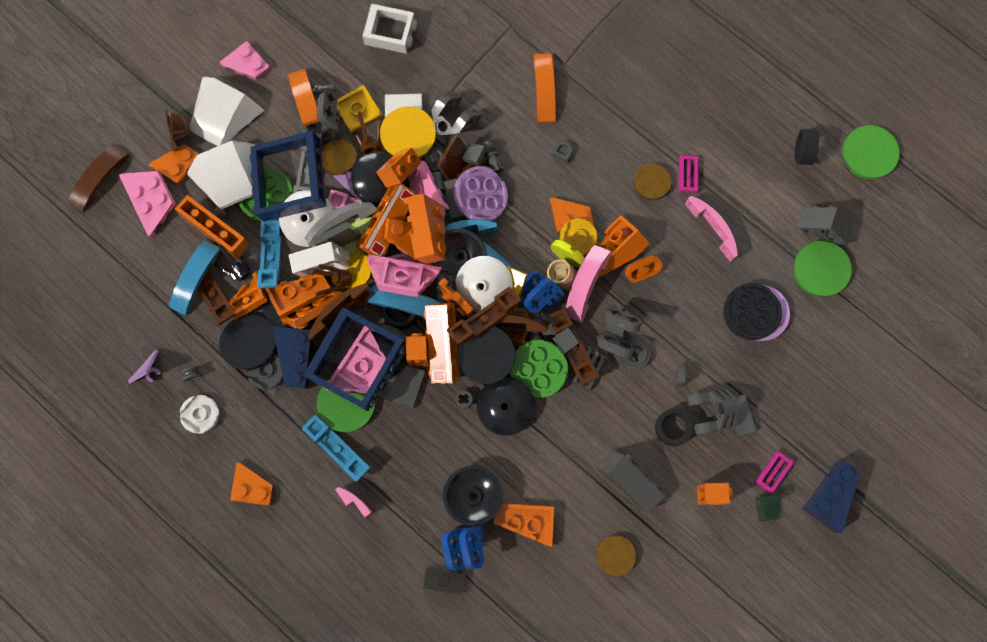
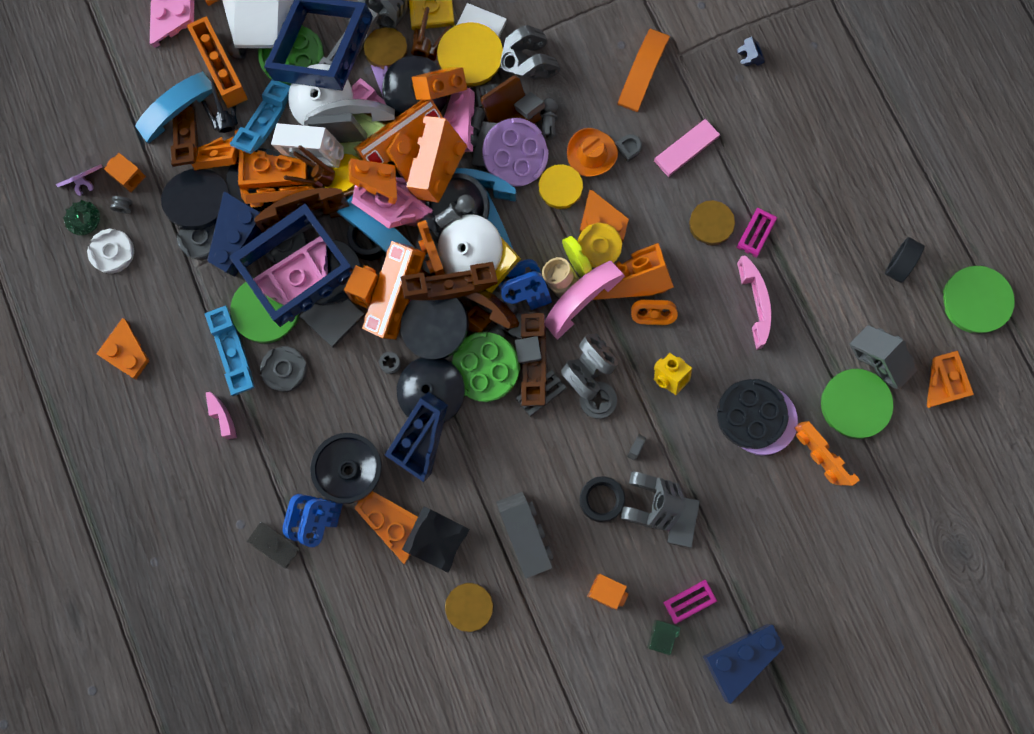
camera: 30 degrees right, 0 degrees up
(171, 396) = (91, 218): none -> clear green gear
(180, 347) = (124, 172): none -> orange brick
(383, 442) = (283, 369): none -> dark grey tile
(386, 263) = (374, 177): none -> orange wing
(466, 251) = (464, 204): none -> dark grey pin
(517, 446) = (419, 437): none -> dark blue wedge
(526, 205) = (560, 186): none -> yellow tile
(537, 168) = (591, 152): none -> orange hat
(567, 516) = (435, 539): none -> black brick
(605, 133) = (686, 147): none -> bright pink tile
(621, 39) = (753, 51): none -> tile
(680, 308) = (672, 373): none -> yellow brick
(816, 318) = (830, 462): none -> orange wing
(878, 221) = (948, 380): none -> orange wing

